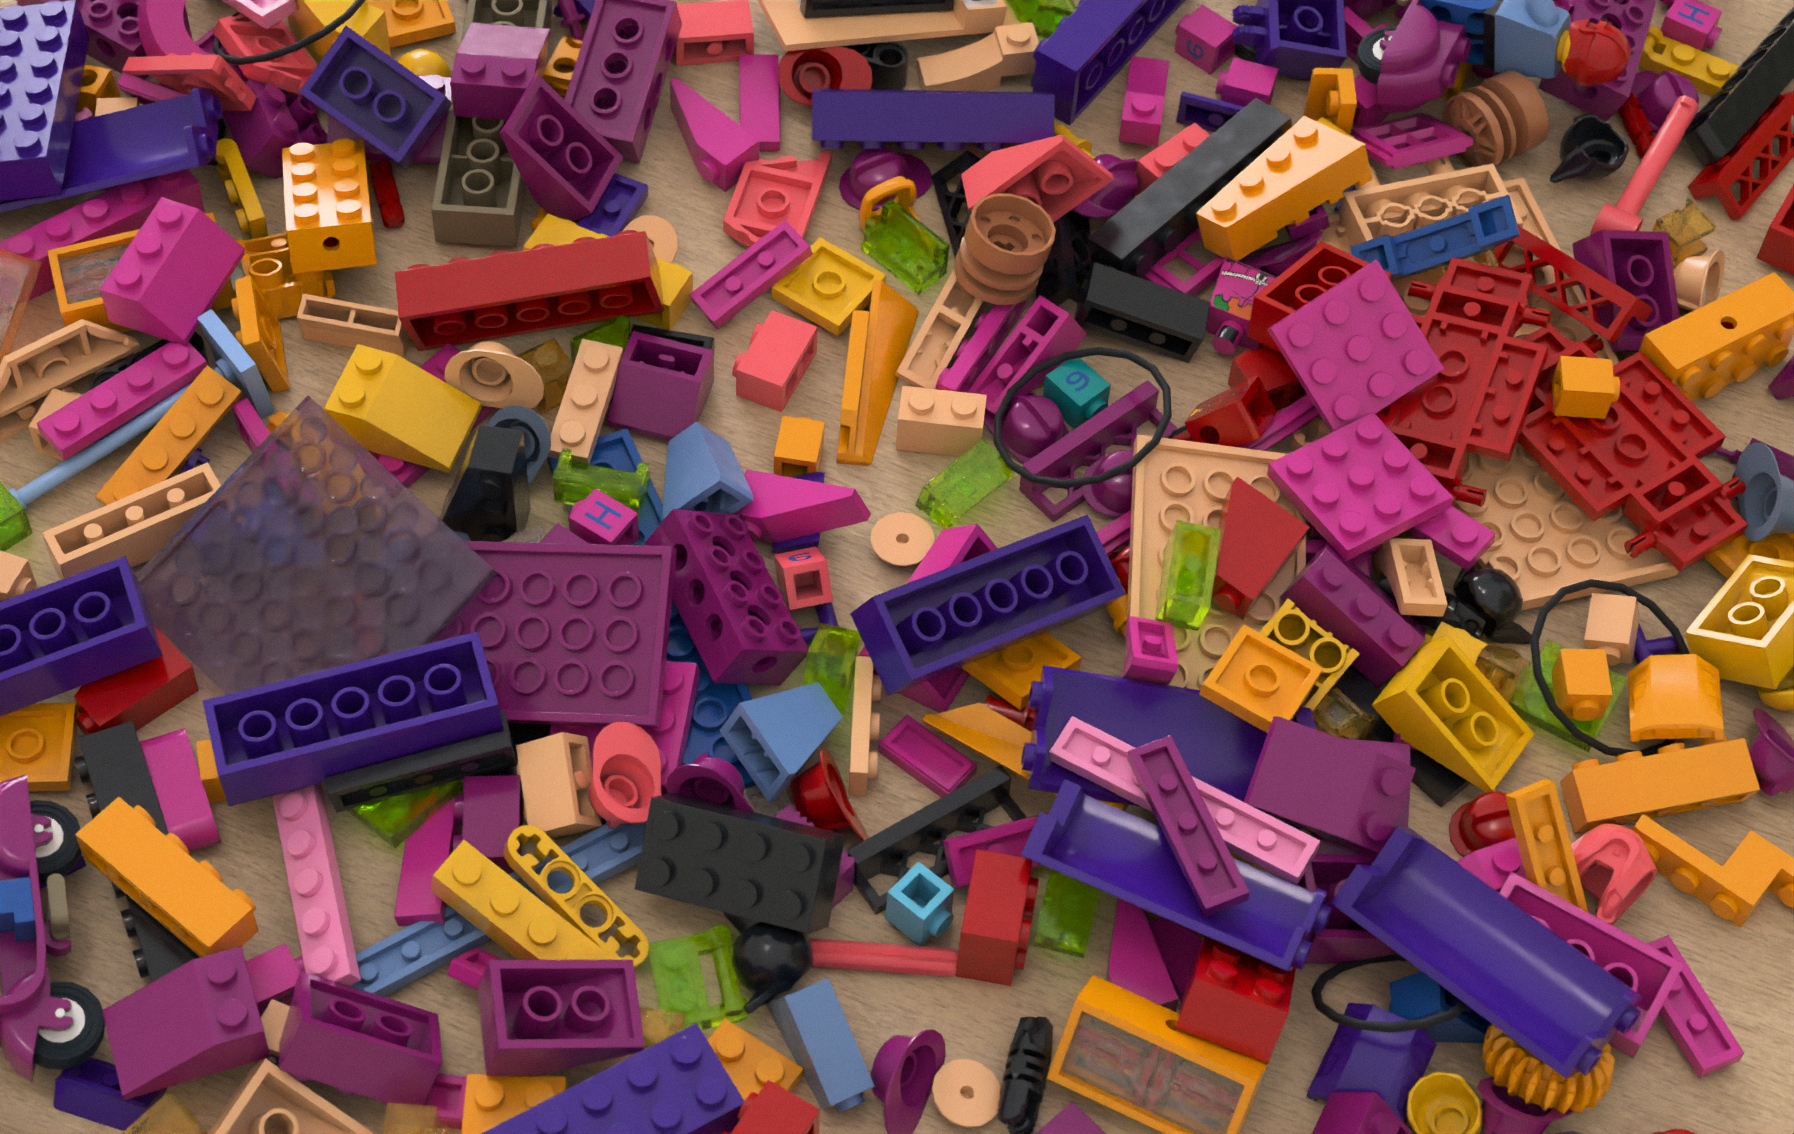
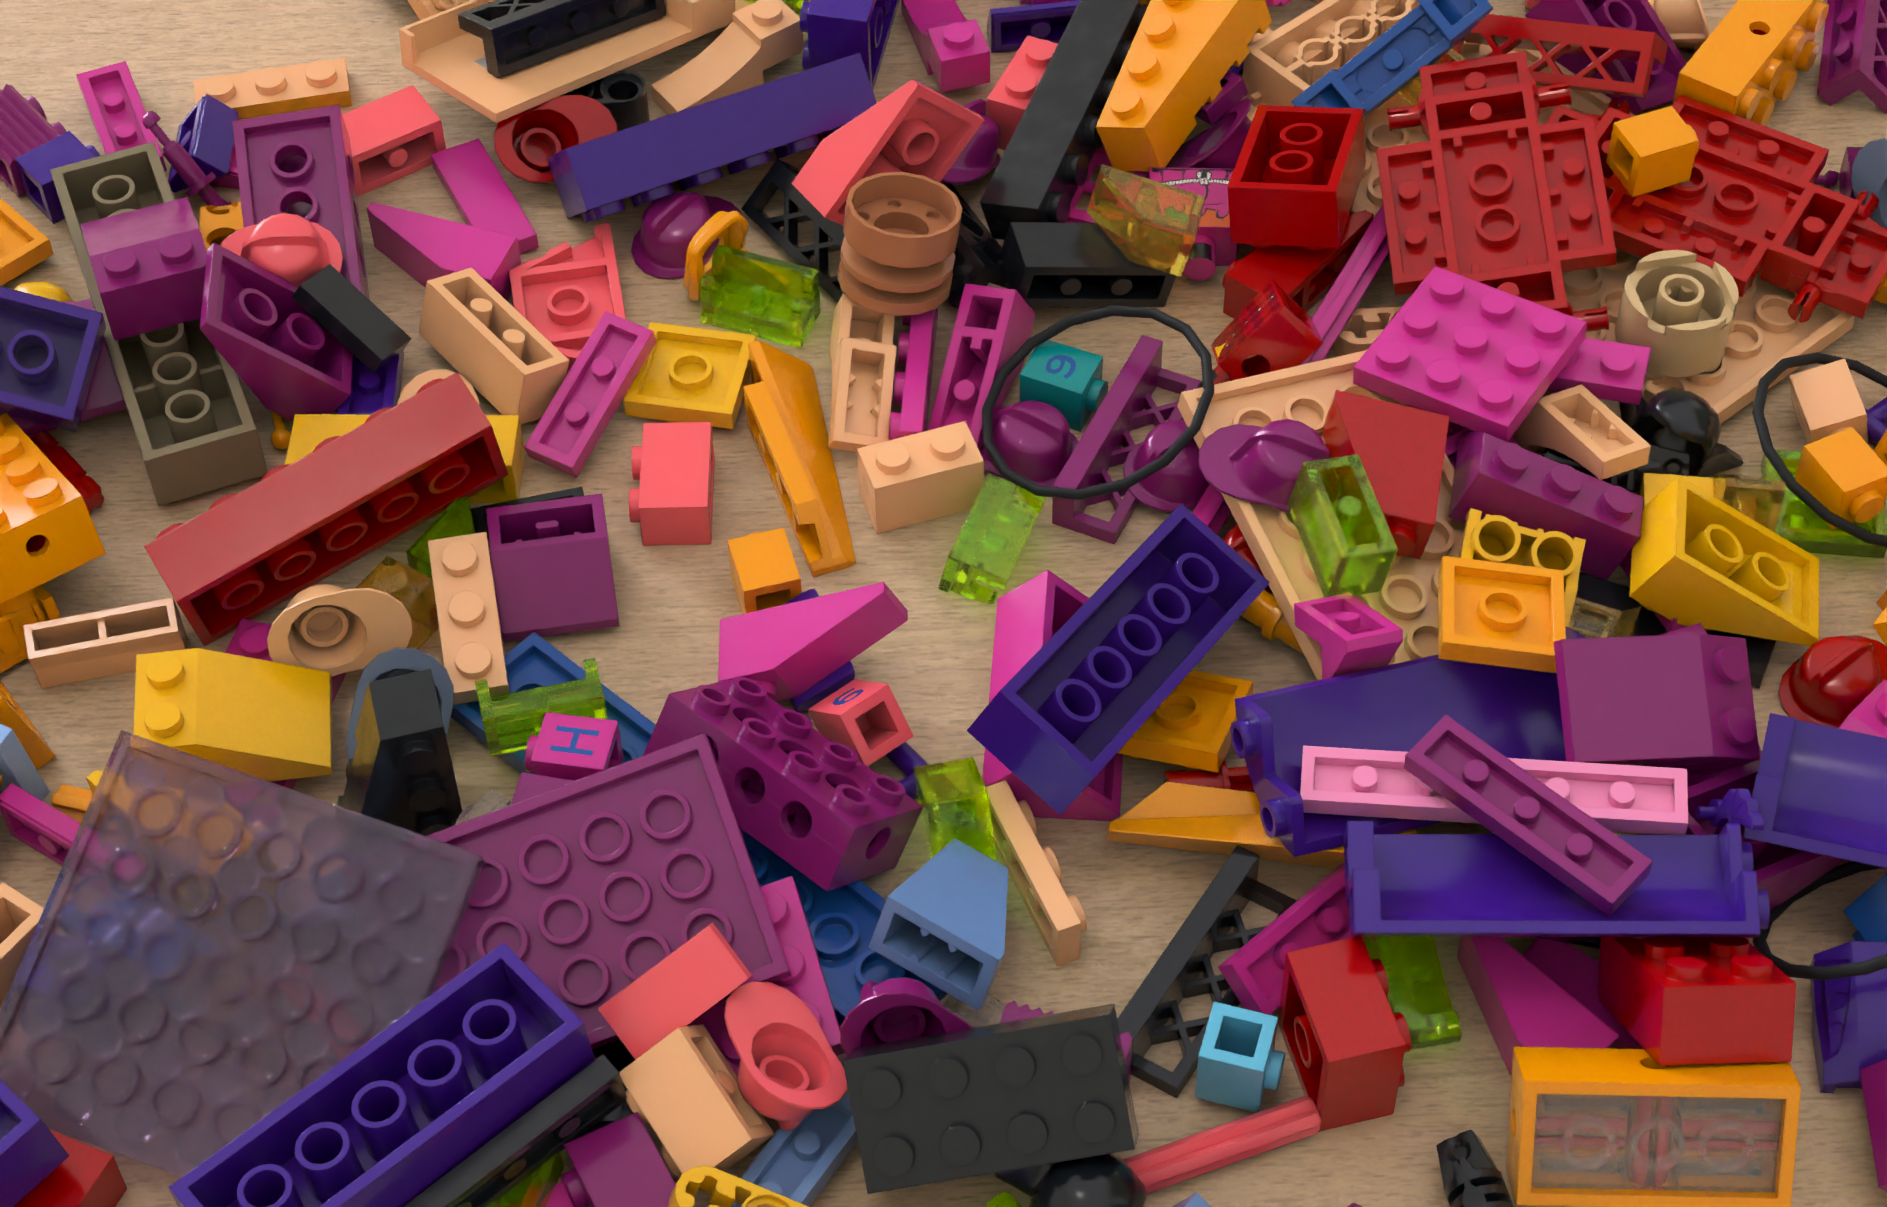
camera: 20 degrees left, 5 degrees down
(575, 707) = (675, 991): none -> coral slope
(595, 95) = (287, 247): none -> coral piece
(615, 159) = (351, 317): none -> black tile
(702, 212) = (491, 344): none -> light nougat brick
(703, 474) = (667, 648): medium blue slope -> none
(823, 797) = (1041, 979): red piece -> none
(902, 539) = (949, 632): light nougat piece -> none
(926, 757) = (1131, 879): dark pink tile -> none
(1157, 501) = (1260, 461): none -> magenta piece
(1194, 297) = (1146, 218): none -> clear yellow slope
(1333, 882) = (1735, 807): none -> dark purple piece
(1355, 347) = (1380, 199): dark pink plate -> none
(1534, 515) = (1678, 312): none -> tan brick

